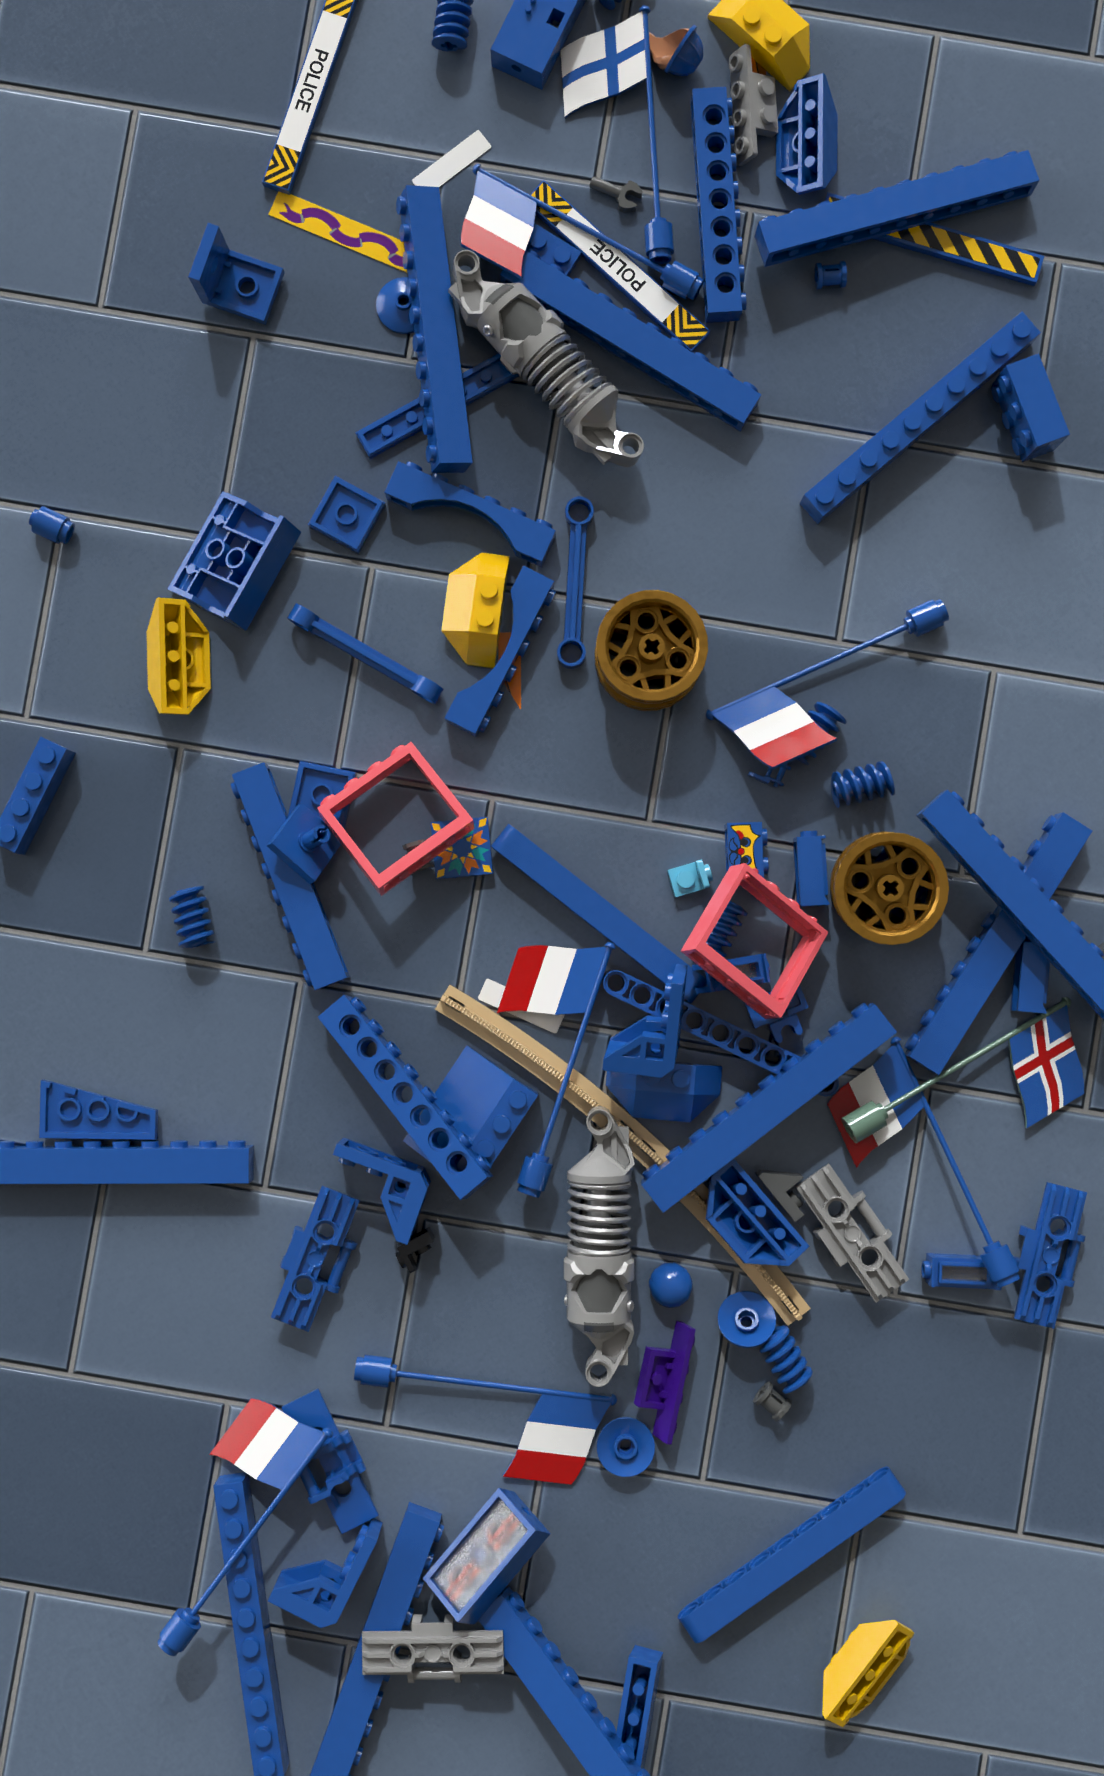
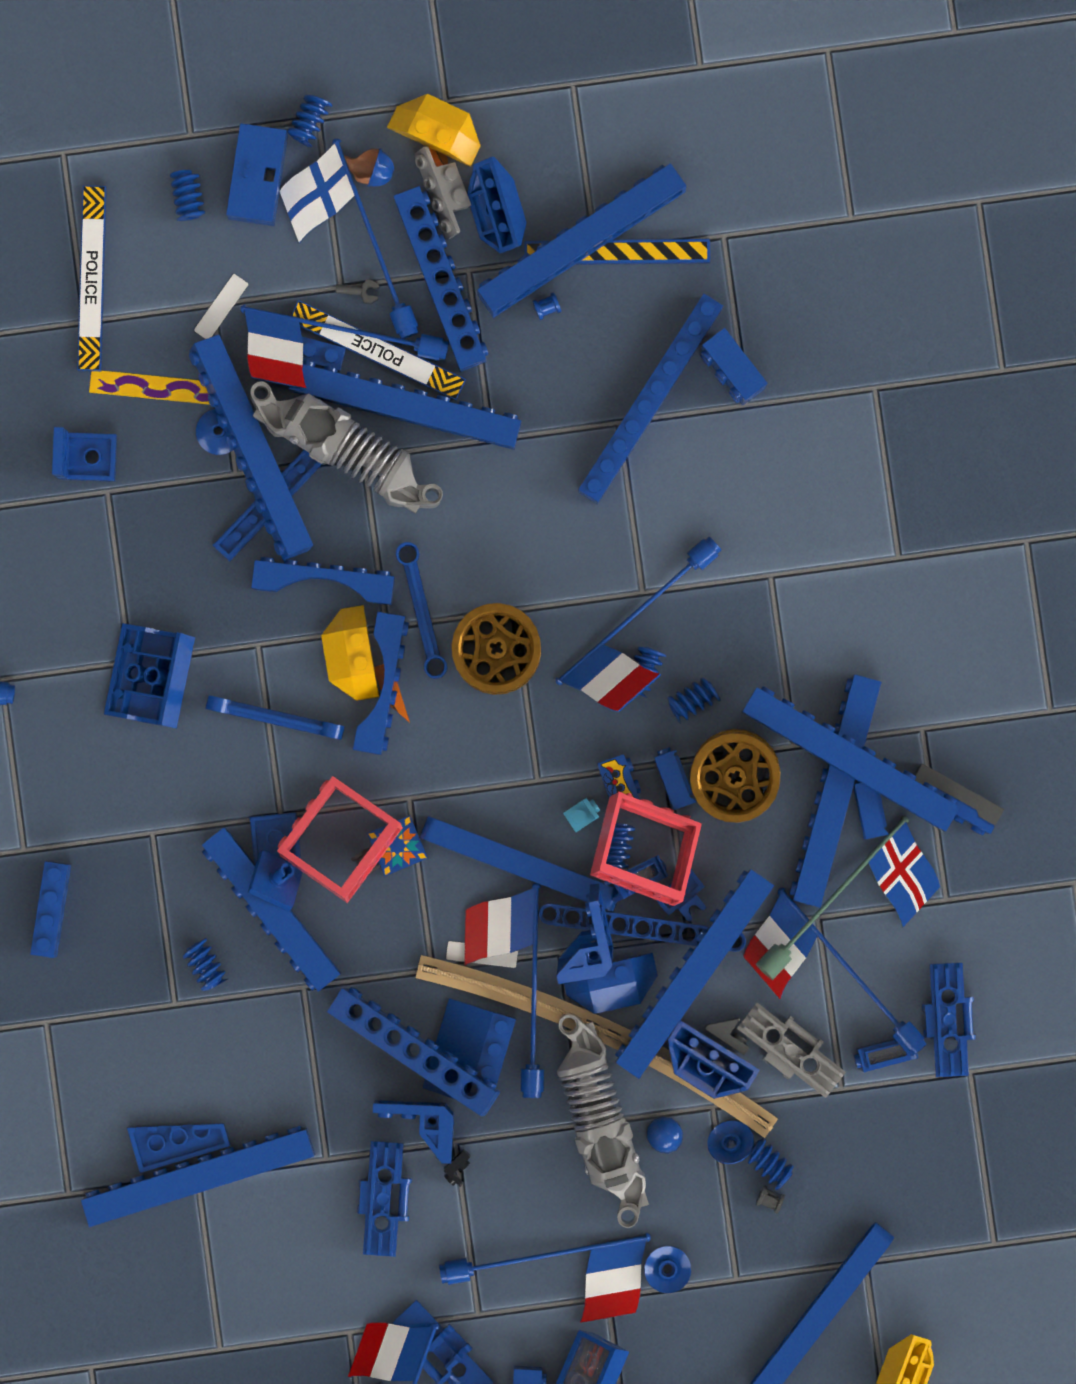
camera: 15 degrees left, 0 degrees up
(177, 657) = (129, 767): yellow wedge -> none
(346, 514) = (225, 611): blue tile -> none
(663, 1380) = (680, 1209): dark purple bracket -> none
(766, 779) = (618, 717): blue piece -> none

